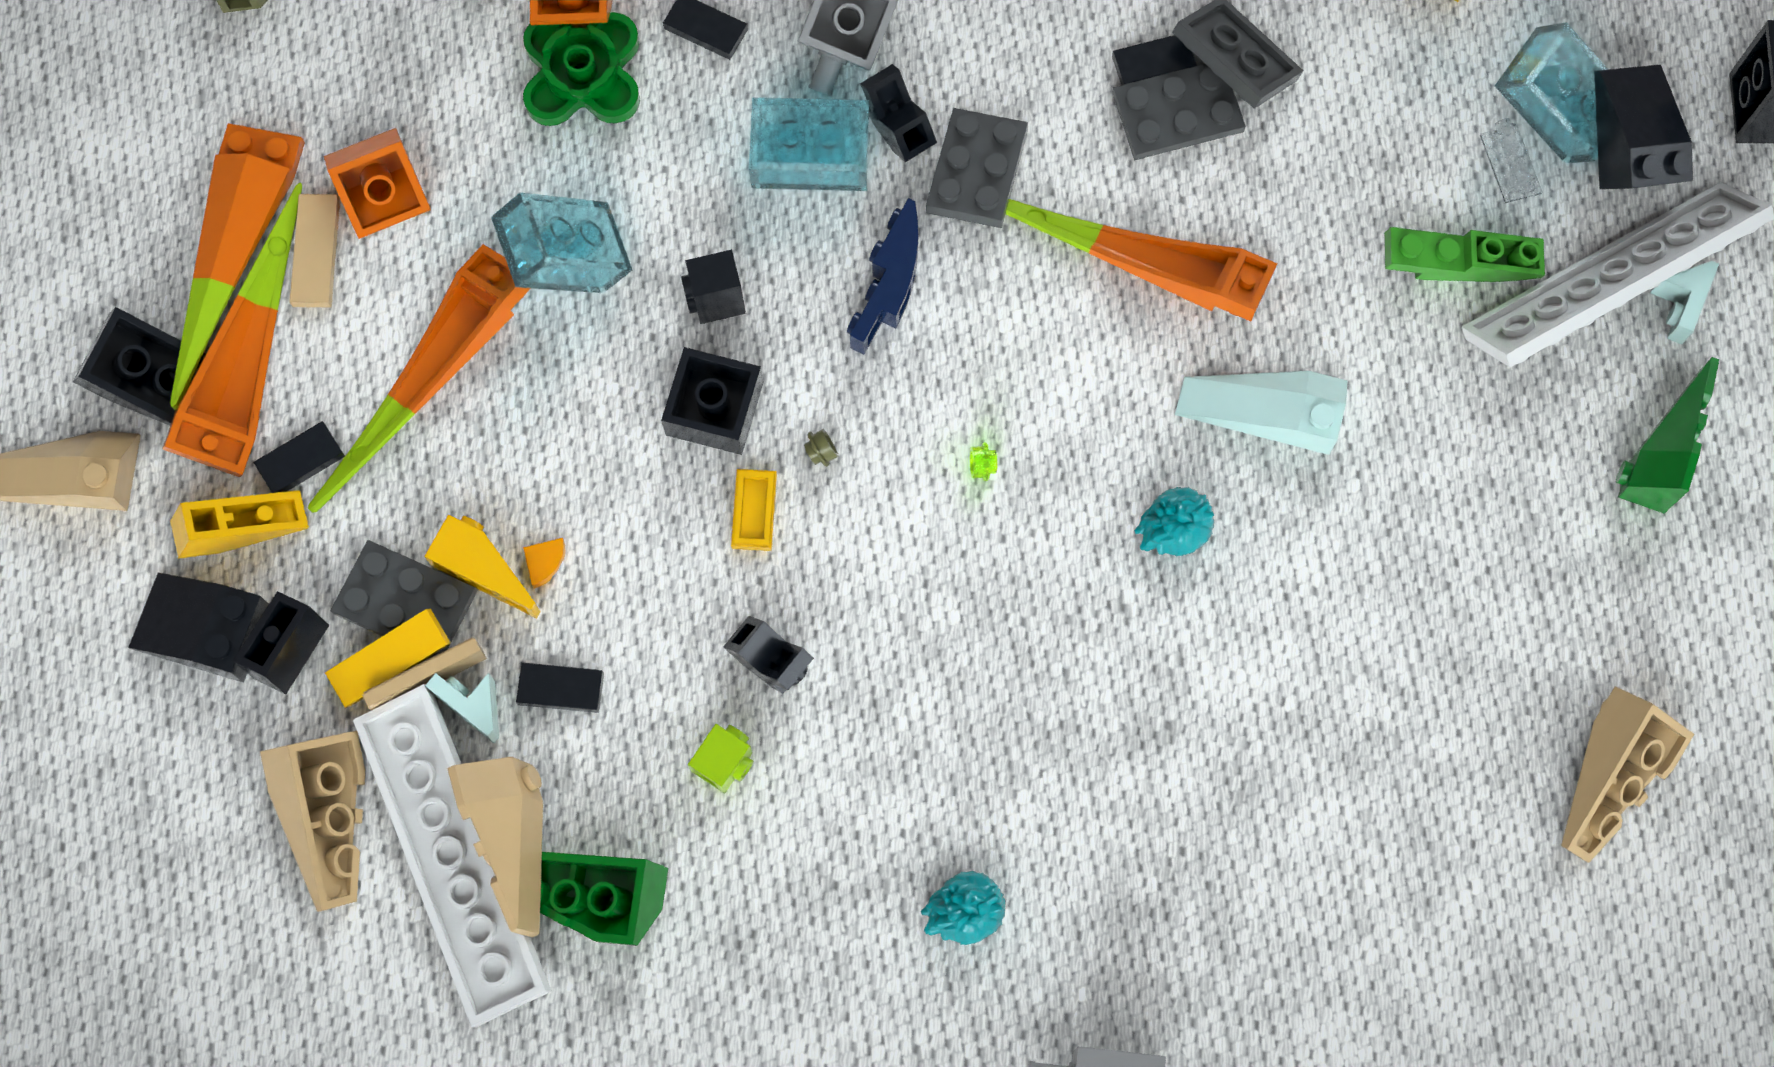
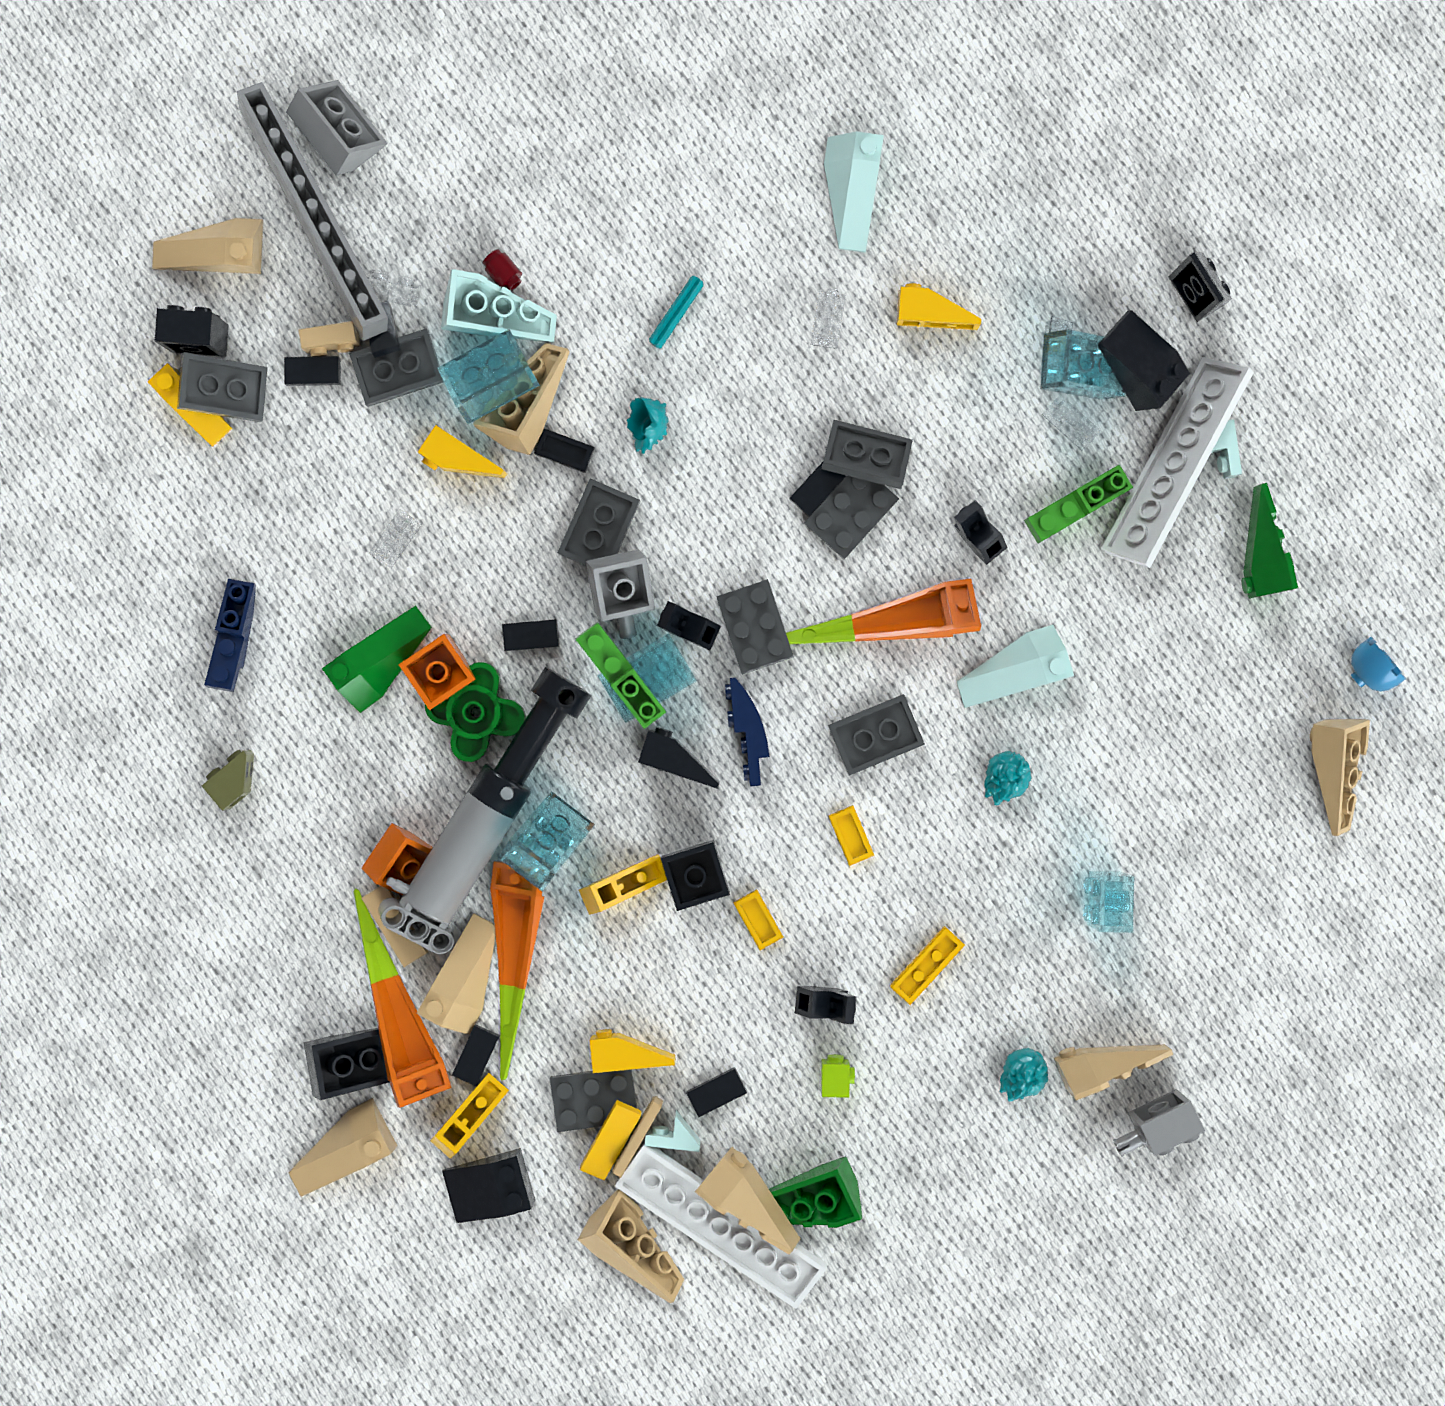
camera: 30 degrees left, 15 degrees up
(243, 195) = (329, 918): orange plate -> none
(281, 642) = (545, 1171): black brick -> none
(342, 360) = (461, 985): none -> tan wedge
(462, 196) = (480, 821): none -> light grey piece
(544, 560) = (658, 1025): light orange tile -> none
(613, 362) = (623, 885): none -> yellow slope
(713, 287) = (651, 807): black brick -> none
(771, 237) = (672, 756): none -> black slope
(779, 102) = (620, 675): none -> bright green slope
(820, 448) = (774, 860): olive plate -> none
(929, 695) = (927, 965): none -> yellow tile
(936, 479) = (851, 835): none -> yellow tile
(982, 462) = (872, 809): clear neon green plate -> none
(1044, 376) = (876, 734): none -> dark grey plate
(1065, 952) = (1090, 1069): none -> tan wedge
(1220, 739) = (1109, 901): none -> clear light blue brick
(1318, 213) = (979, 532): none -> black brick
(1737, 667) = (1375, 667): none -> dark azure cylinder

